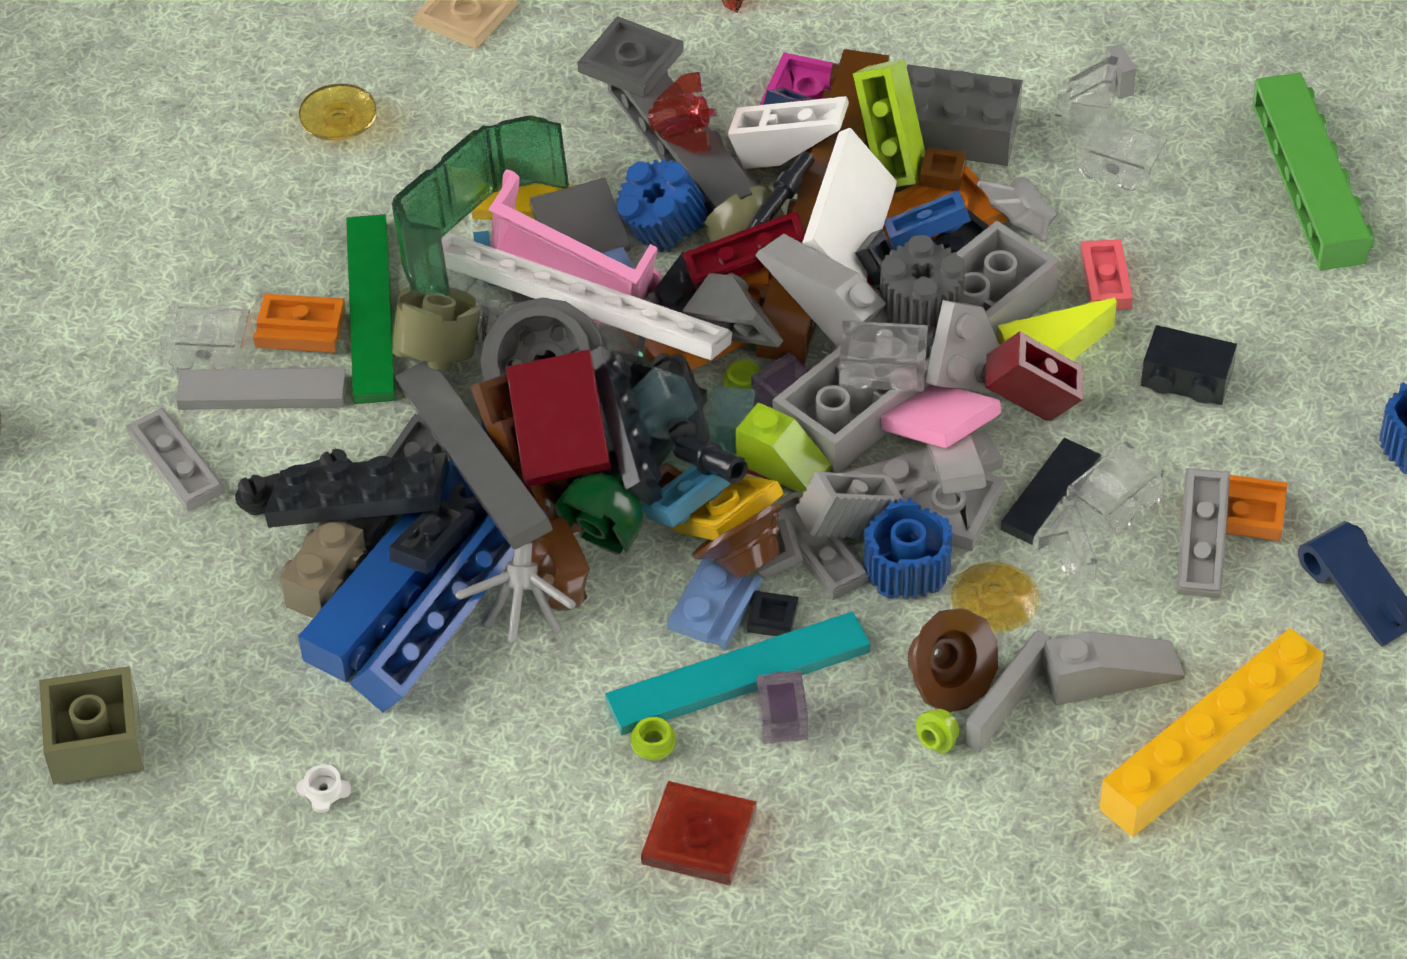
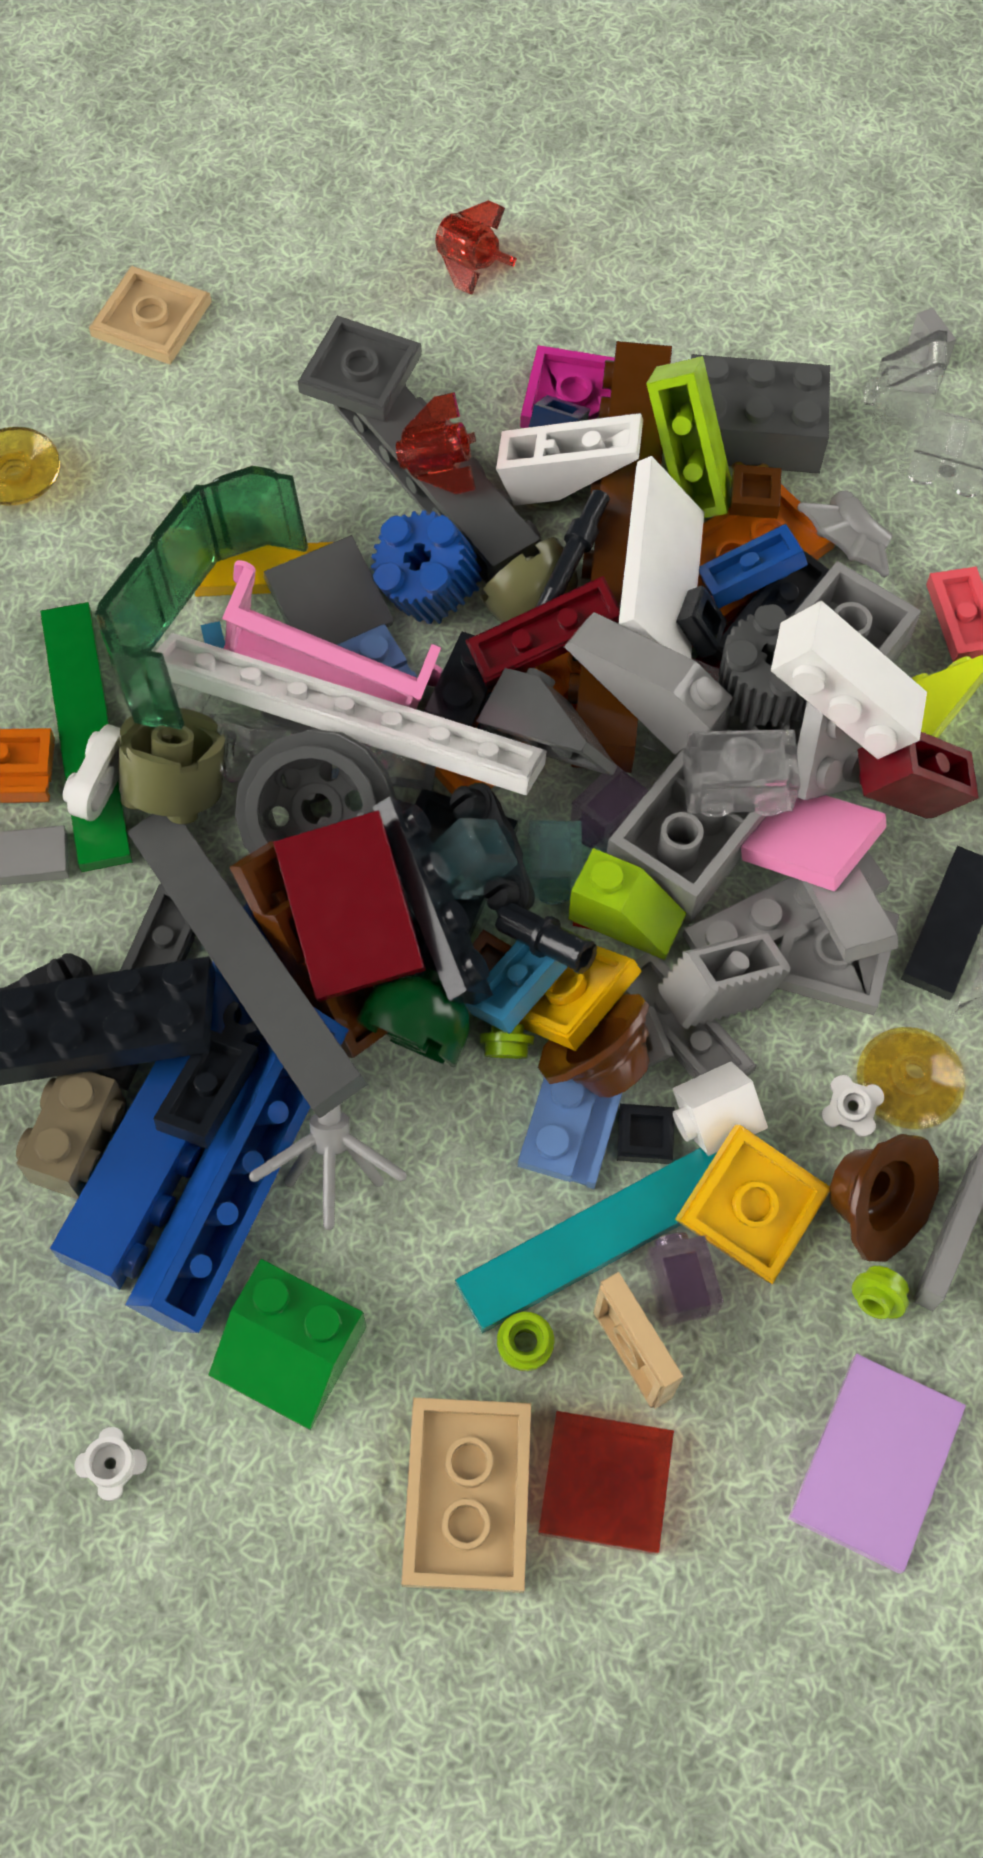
camera: 10 degrees left, 15 degrees up
(375, 332) = (97, 776): none -> white plate
(469, 719) = (286, 1344): none -> green slope
(561, 563) = (381, 1108): reddish brown piece -> none
(591, 830) = (467, 1495): none -> tan plate
(672, 541) = (504, 1045): none -> lime plate
(735, 734) = (636, 1341): none -> tan tile
(739, 374) = (555, 795): lime plate -> none
(829, 594) = (715, 1104): none -> white brick
(846, 660) = (753, 1203): none -> yellow tile
(908, 550) = (825, 1038): blue brick -> none
(913, 842) = (877, 1463): none -> lavender tile
(936, 595) = (840, 1115): none -> white plate
(972, 289) = (849, 680): none -> white brick

